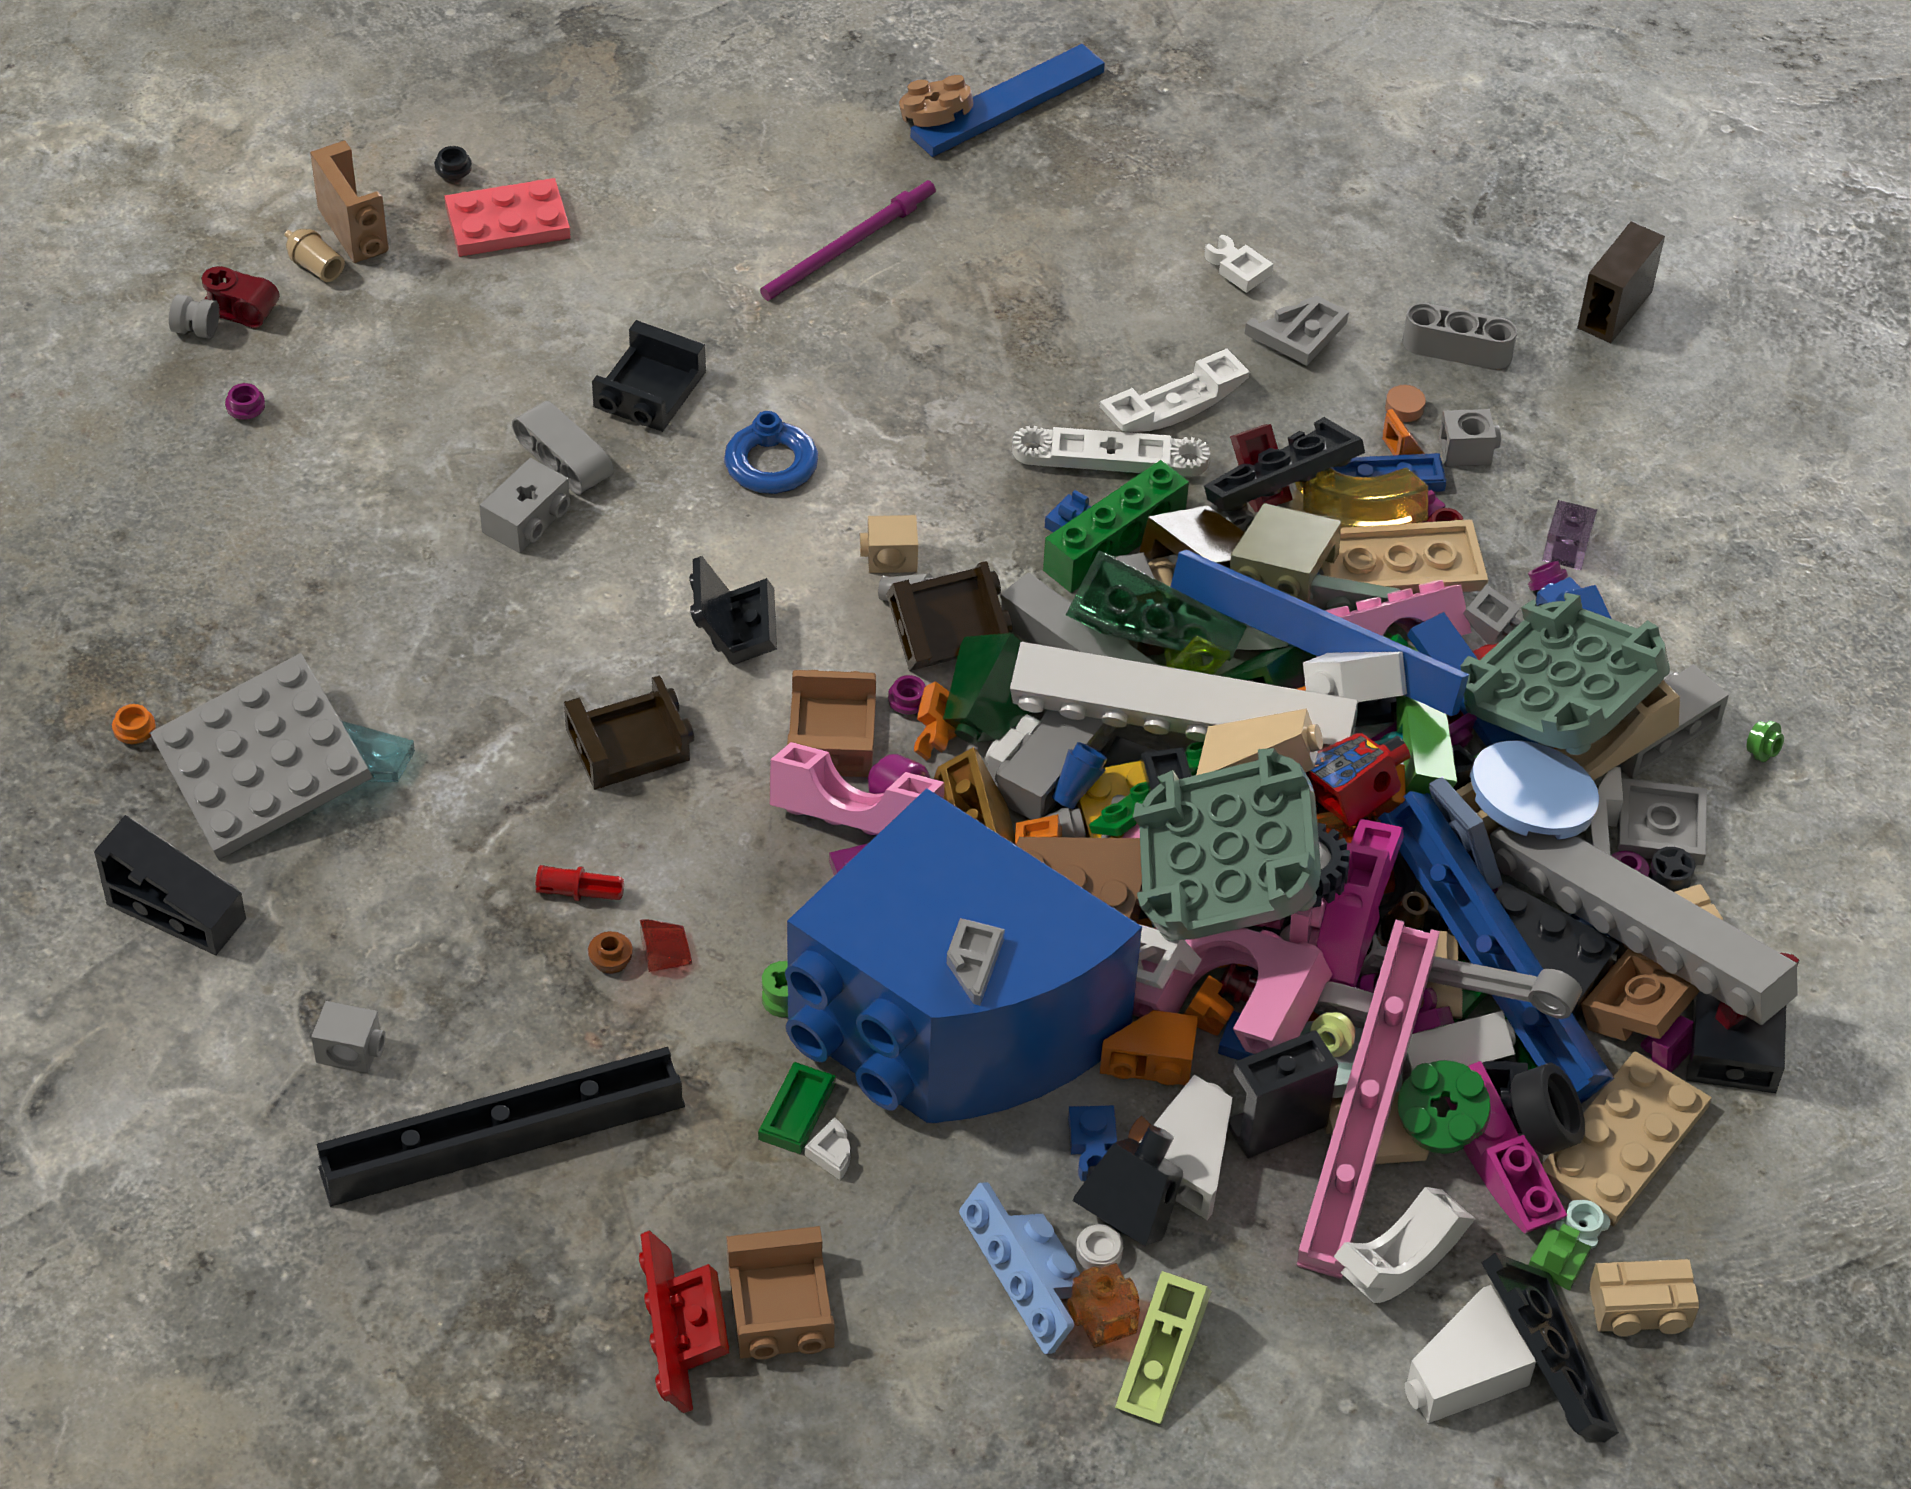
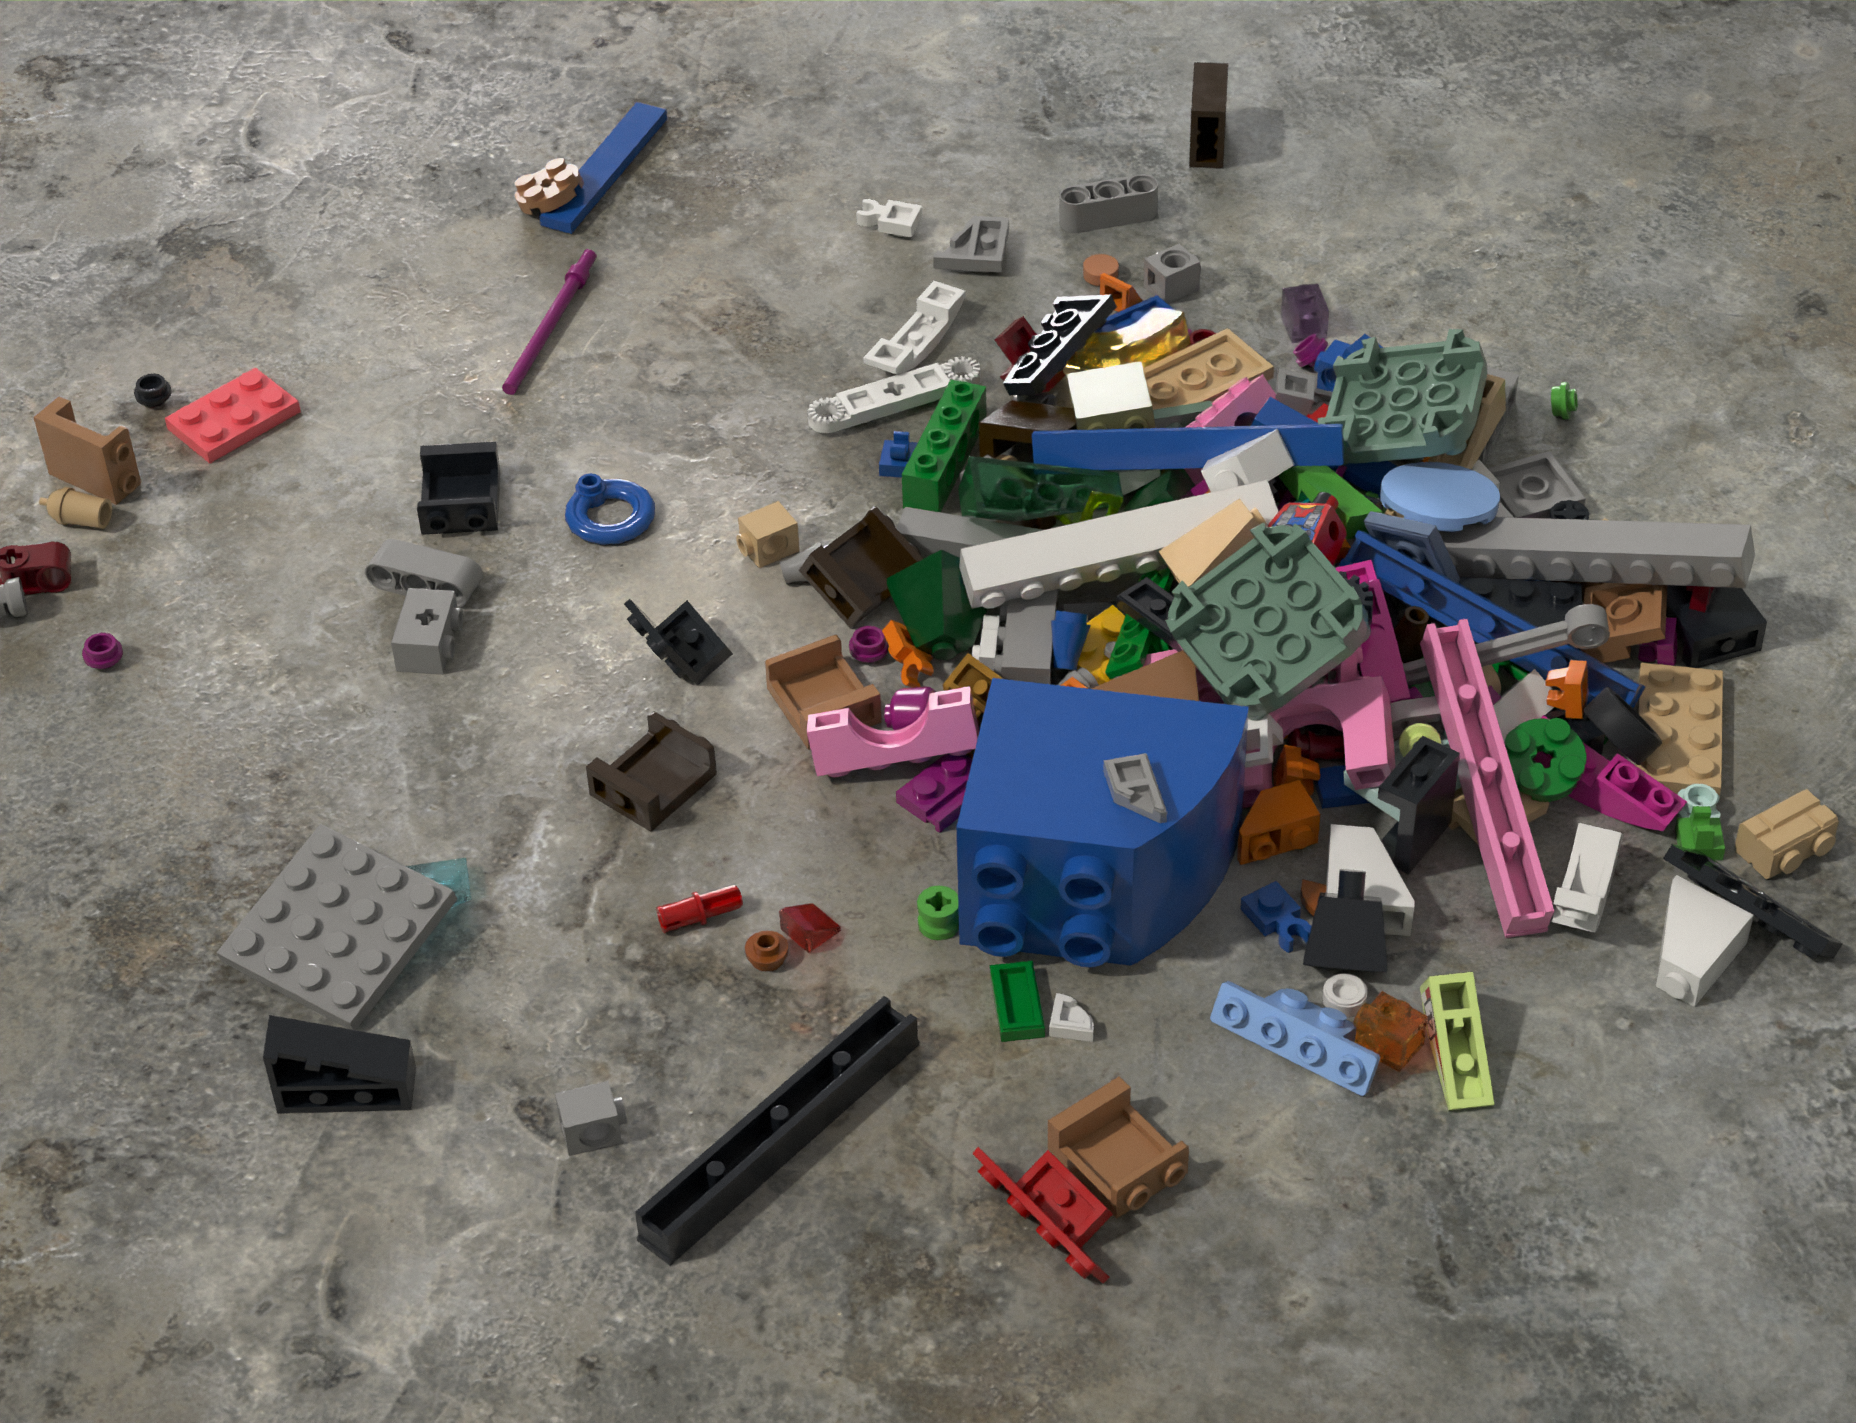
camera: 25 degrees left, 5 degrees down
(133, 724) = (195, 953): orange plate -> none
(1522, 1046) = (1573, 686): none -> orange tile

